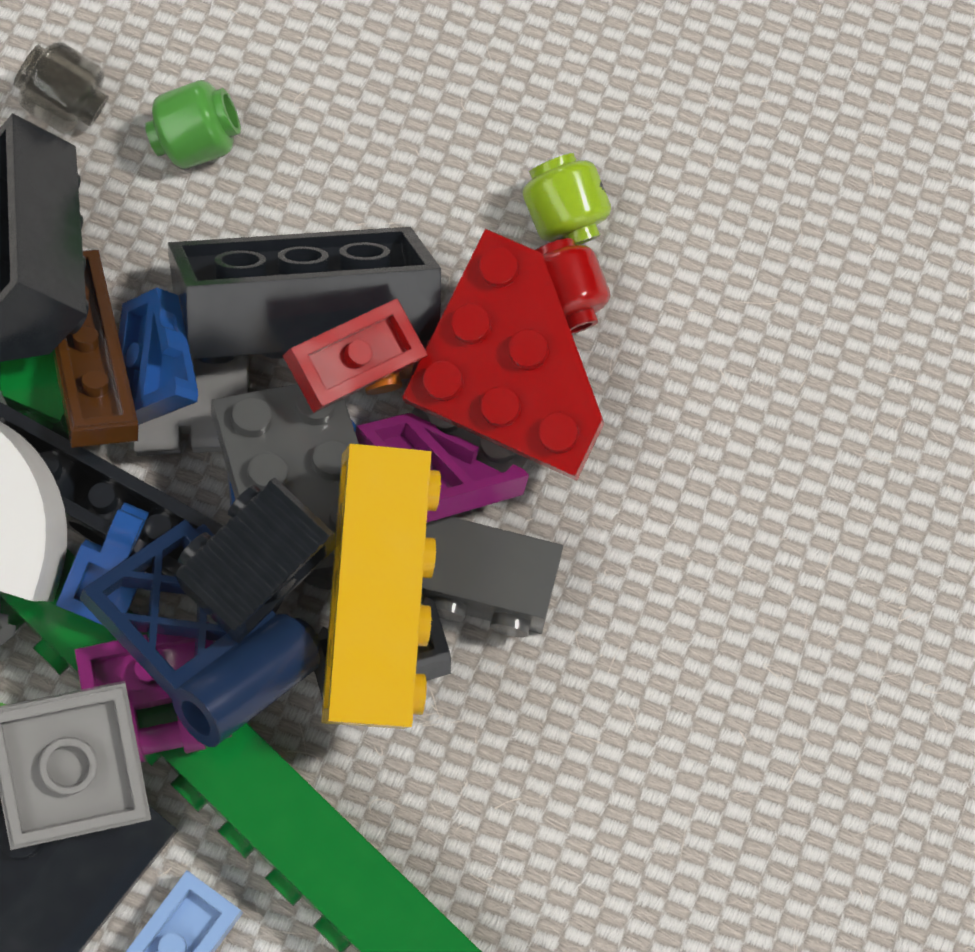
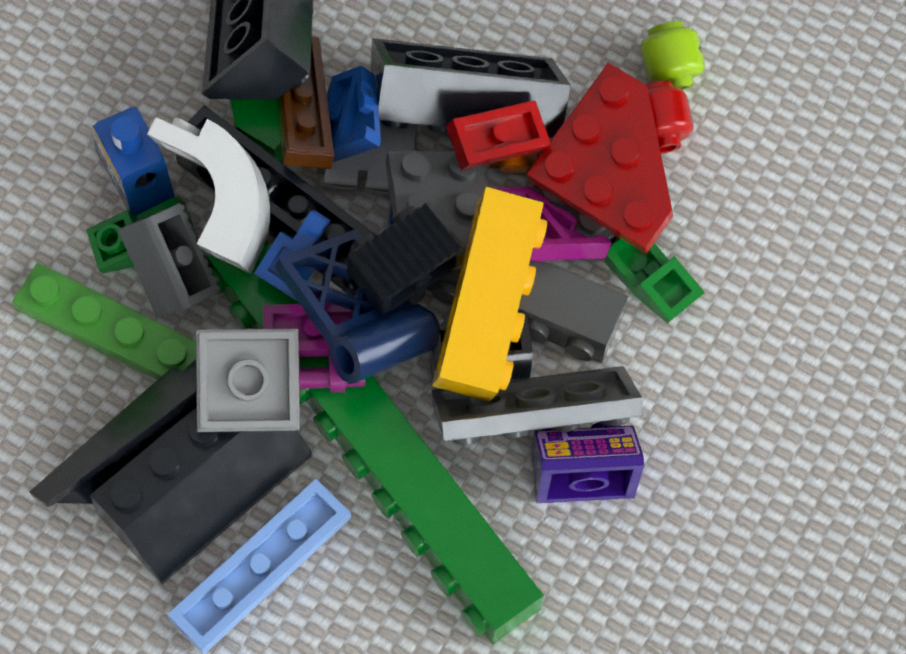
camera: 10 degrees right, 5 degrees down
(474, 715) = (540, 403): none -> dark grey plate
(544, 781) = (586, 463): none -> dark purple slope
(593, 509) = (654, 278): none -> green slope

